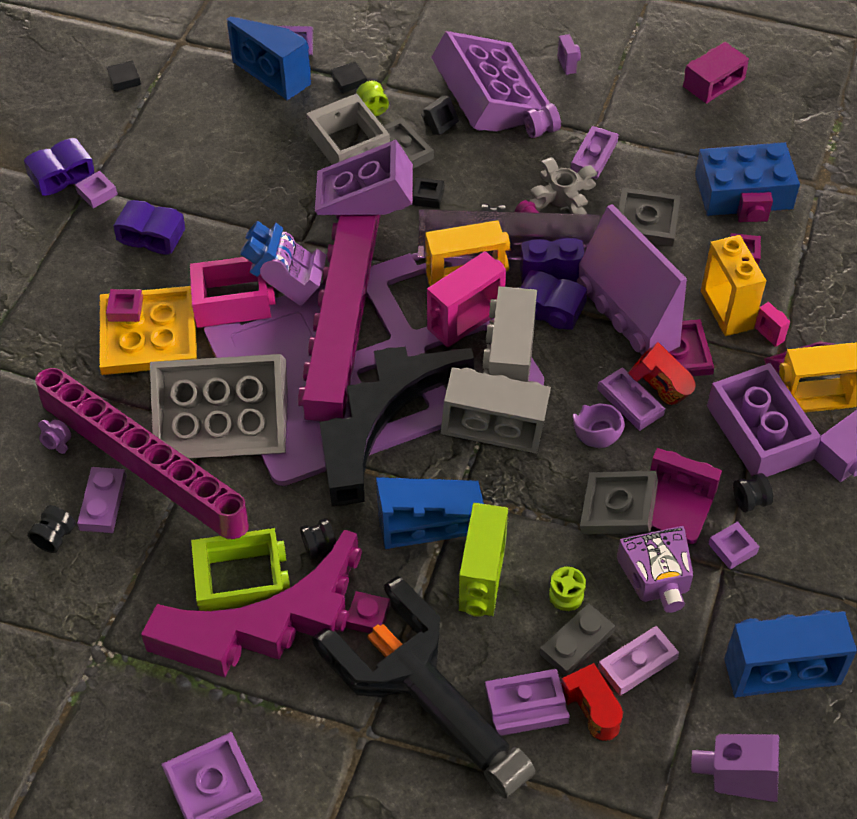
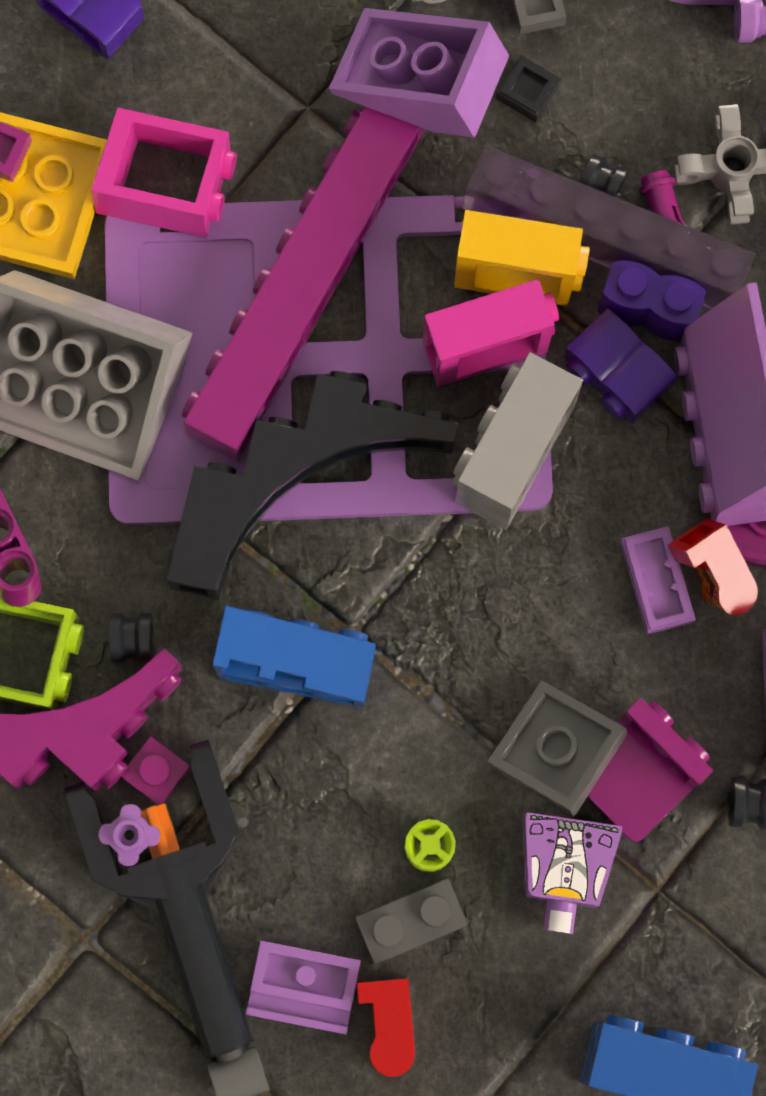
camera: 20 degrees right, 25 degrees up
(283, 262) = (250, 163): hips -> none
(368, 653) = (144, 835): none -> medium lavender plate
(482, 559) = (328, 770): lime window -> none
(494, 409) = (447, 538): light grey brick -> none
(598, 425) = (588, 609): medium lavender hair -> none
(638, 660) = (474, 987): lavender plate -> none
(733, 545) = (684, 871): medium lavender plate -> none

